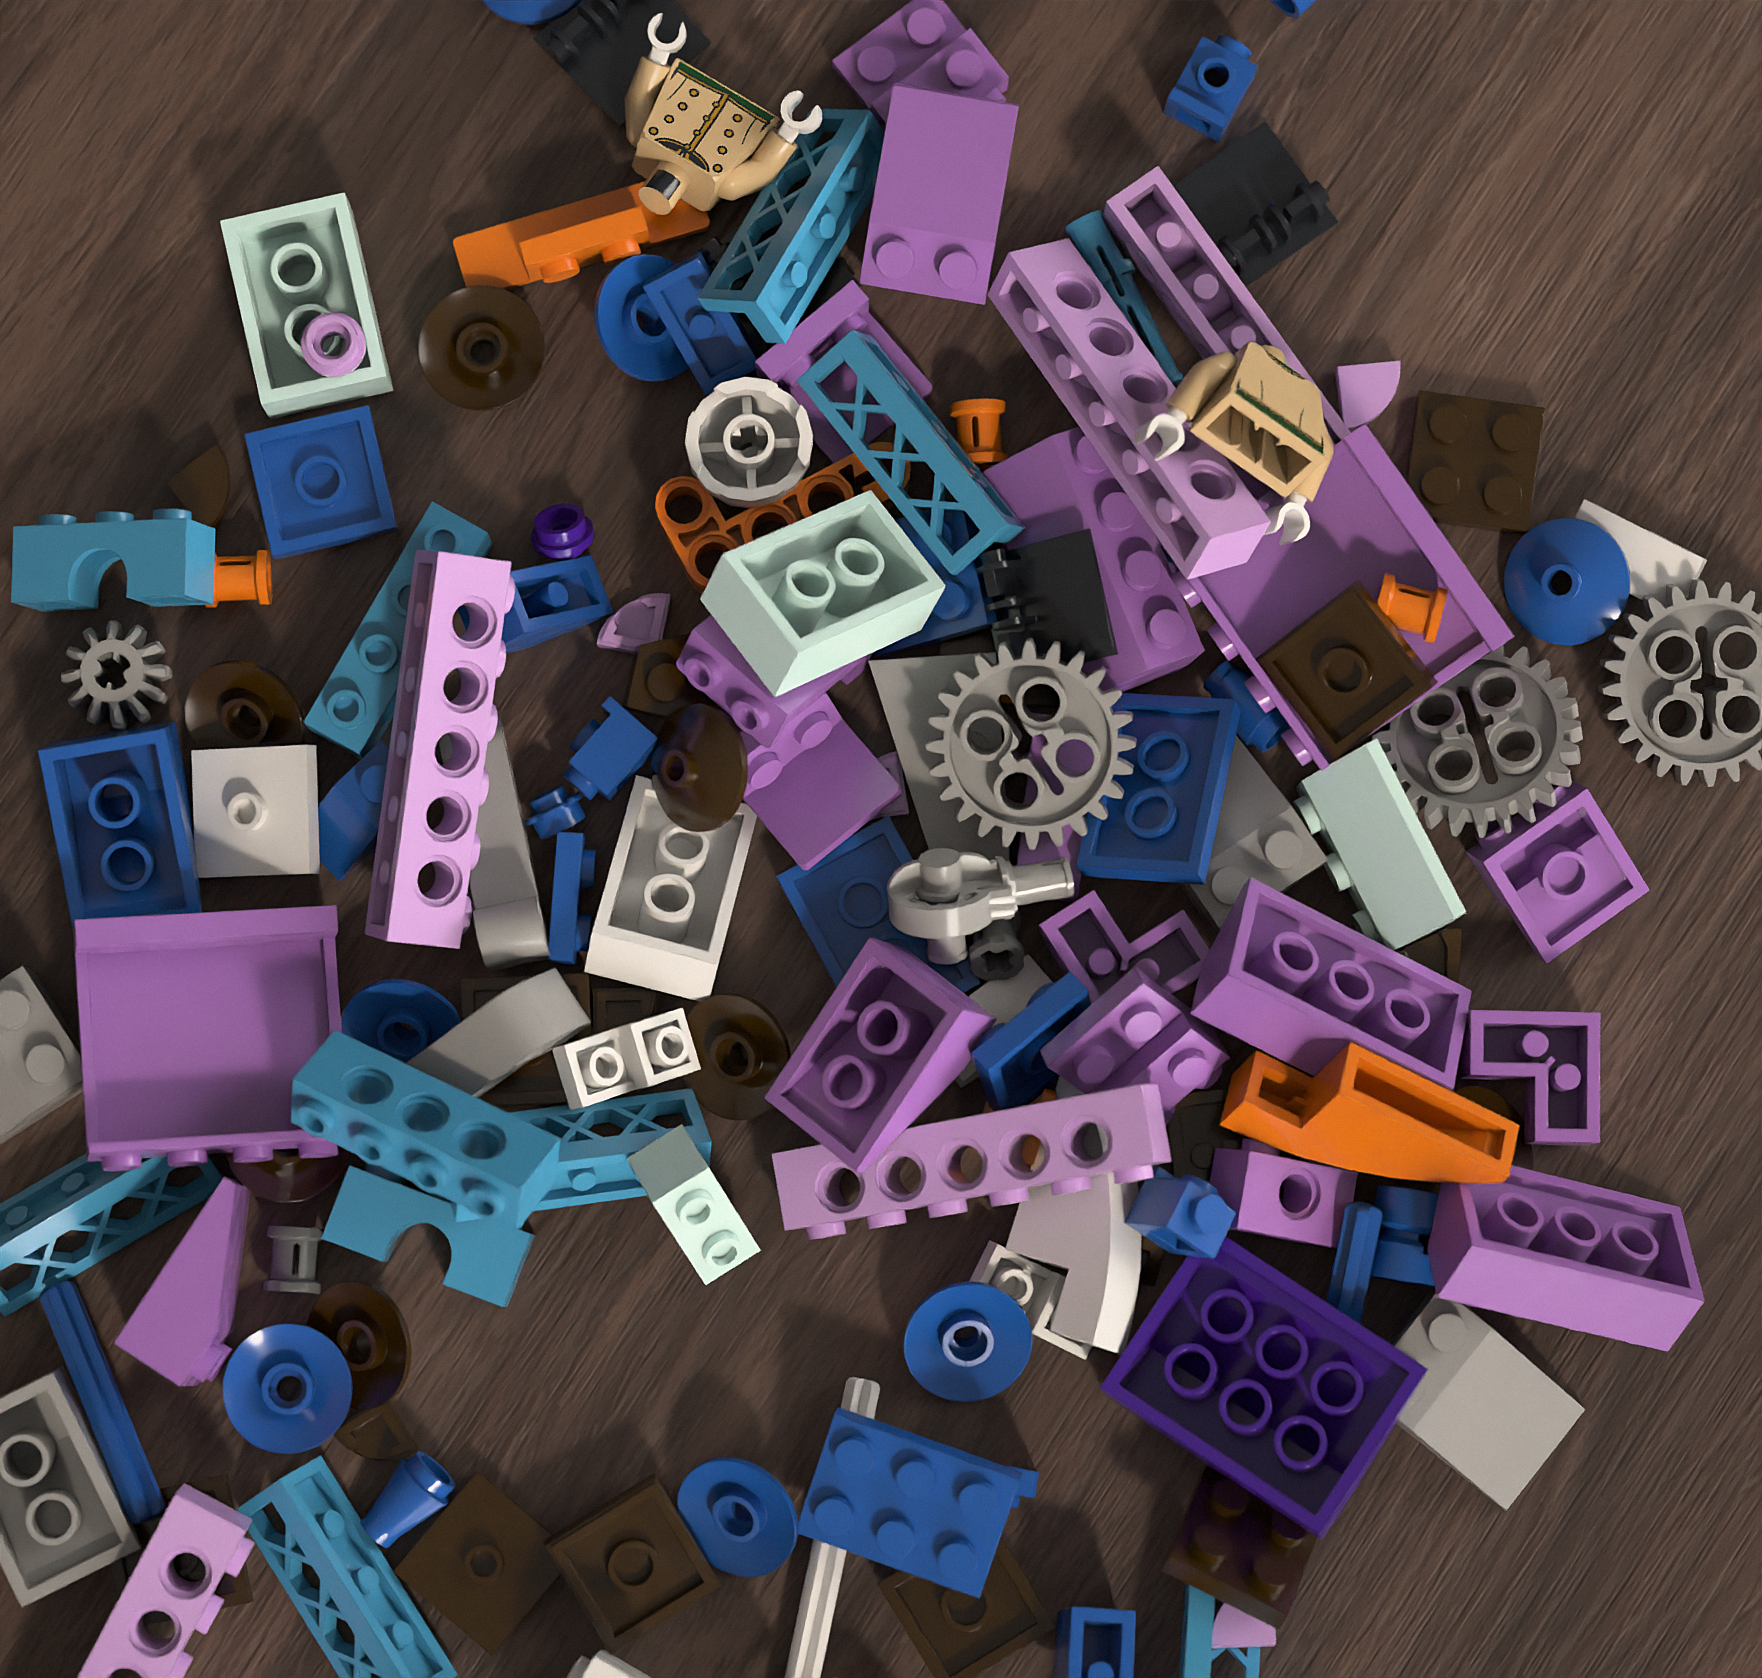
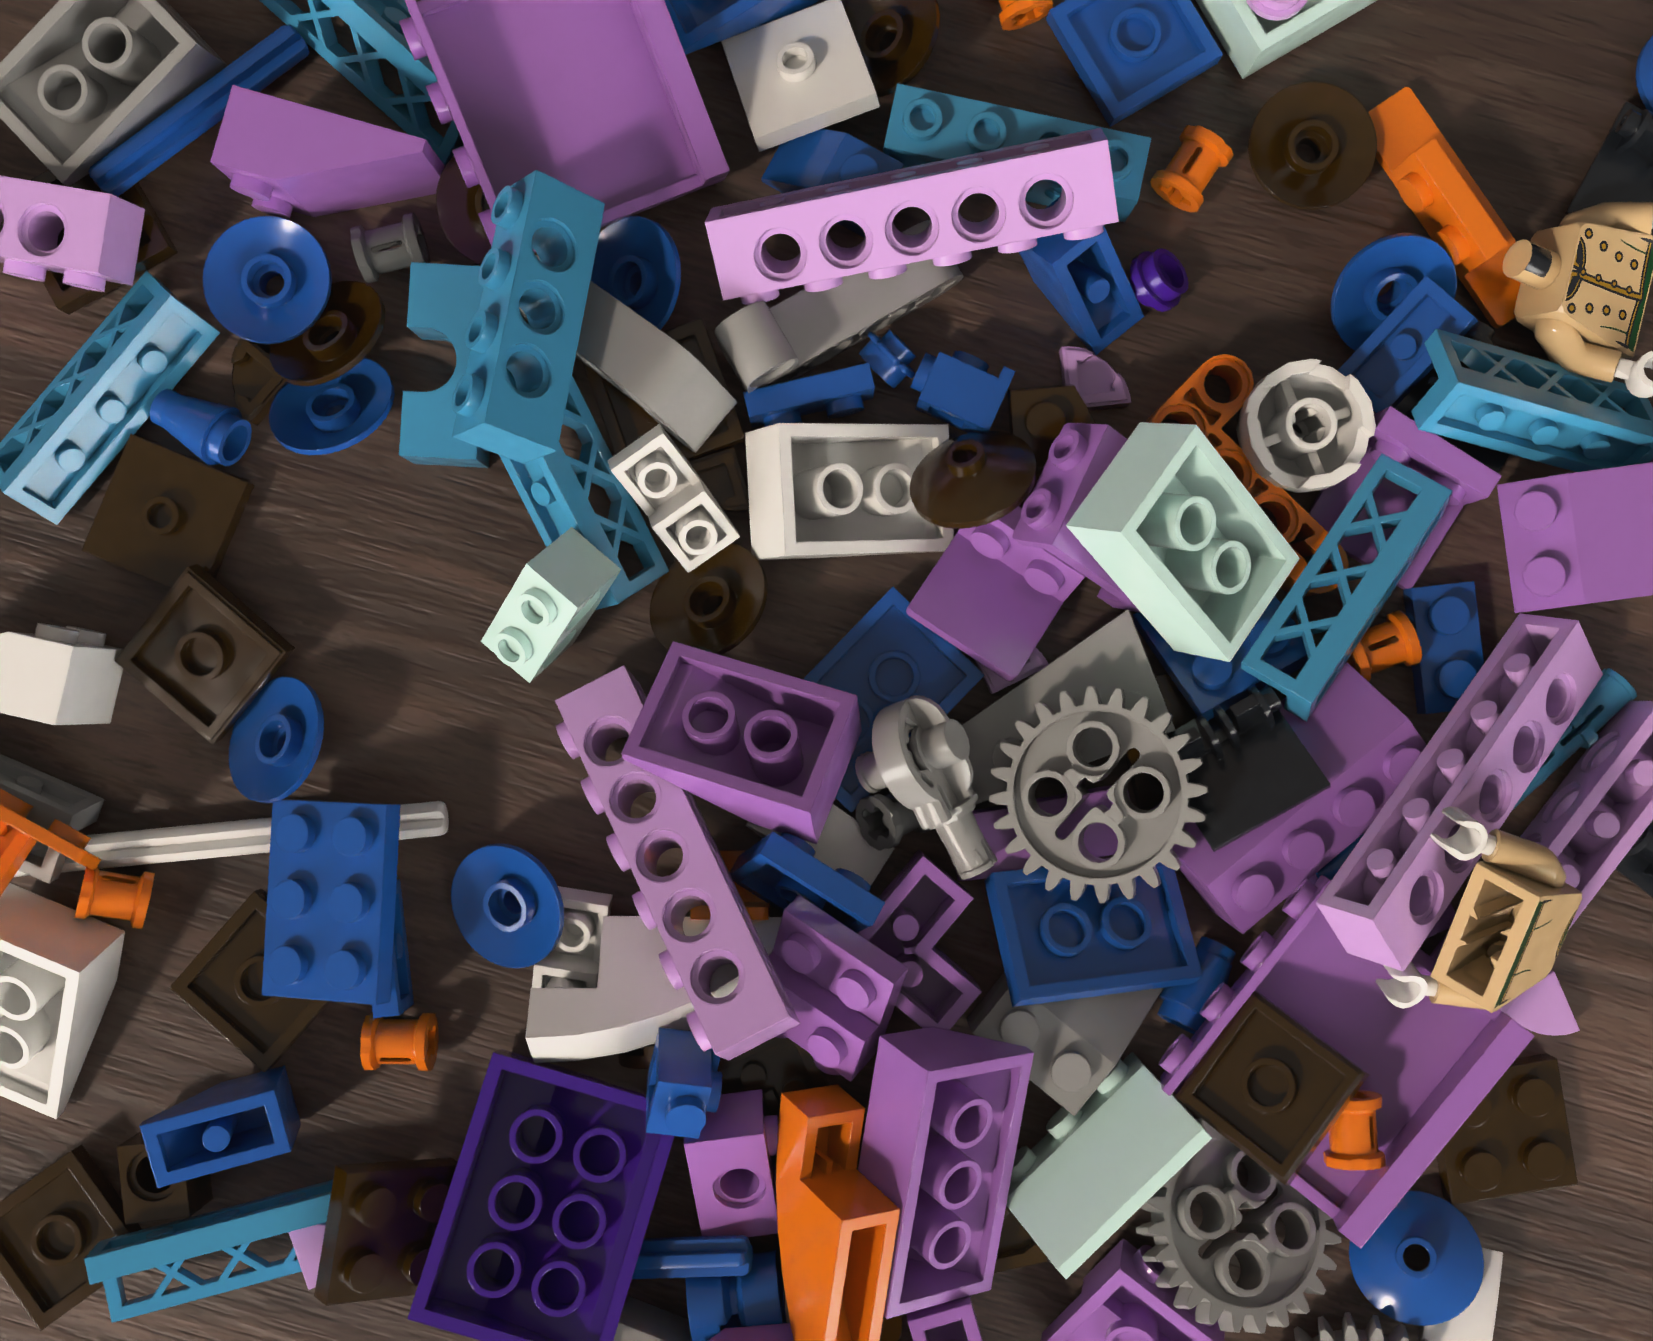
camera: 75 degrees right, 5 degrees up
(443, 1363) = (333, 413): none -> blue dish
(455, 455) = (1191, 168): none -> orange bush
(991, 368) = (1449, 641): none -> blue plate
(1067, 1489) = (399, 1042): none -> orange bush

